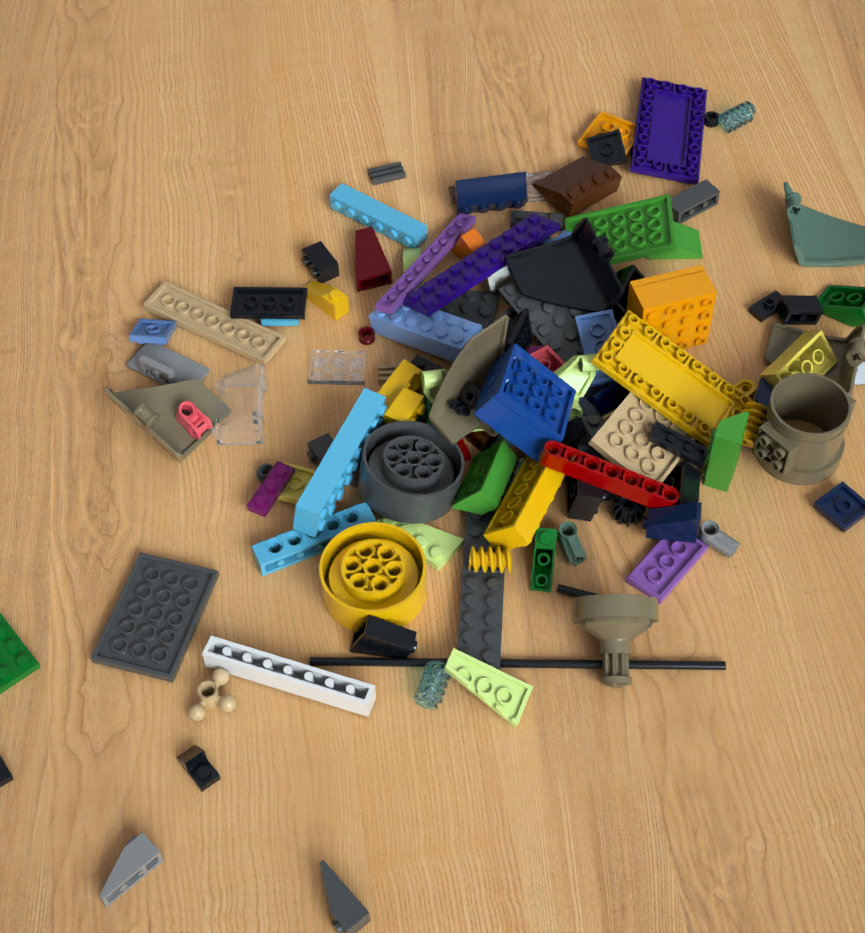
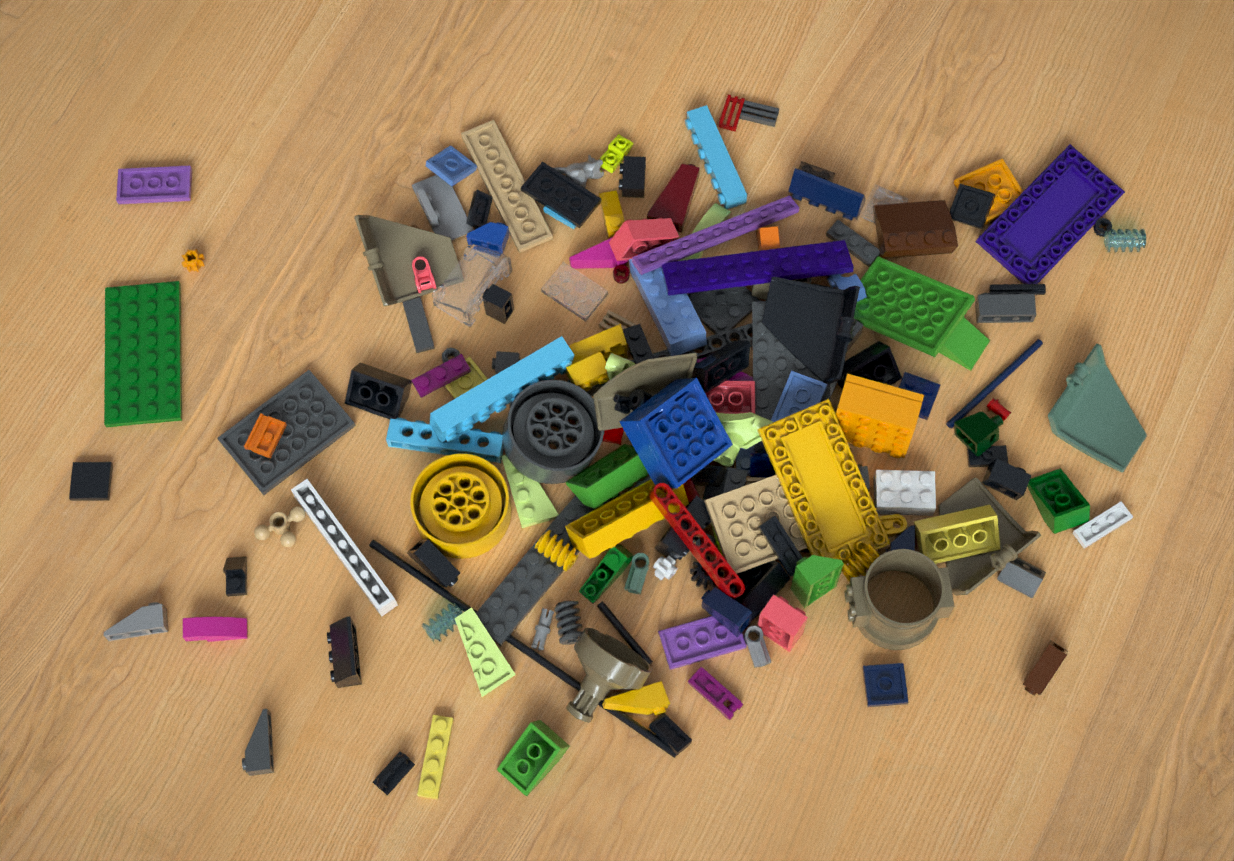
camera: 35 degrees right, 15 degrees up
(140, 626) = (265, 435): none -> orange plate
(204, 351) = (479, 209): none -> black plate
(212, 825) = (214, 628): none -> dark pink slope
(216, 465) = (418, 325): none -> dark grey tile
(220, 535) = (377, 391): none -> black slope
(228, 362) = (490, 236): none -> blue slope
(275, 277) = (582, 171): none -> light grey animal
(279, 406) = (498, 303): none -> black brick
(290, 256) = (615, 154): none -> neon yellow slope
(341, 328) = (596, 257): none -> dark pink slope
(359, 174) = (735, 100): none -> red tile
(361, 764) = (344, 653): none -> black slope
(366, 290) = (641, 236): none -> coral brick
(488, 842) = (393, 773): none -> black hinge
(516, 804) = (435, 757): none -> light yellow plate
(525, 636) = (542, 629): none -> light grey pin
(544, 617) = (567, 622): none -> dark grey piece
(590, 525) = (665, 567): none -> white gear
(605, 746) = (532, 757): none -> bright green slope
(660, 639) = (644, 701): none -> yellow slope
(706, 175) = (1037, 289): none -> black axle
(706, 651) = (670, 733): none -> black plate
(715, 596) = (714, 692): none -> magenta plate
(728, 257) = (997, 381): none -> dark blue piece
(729, 501) = (782, 622): none -> coral brick
(735, 358) = (904, 492): none -> white brick
(748, 290) = (978, 431): none -> dark green torso
(749, 270) = (998, 409): none -> red pin

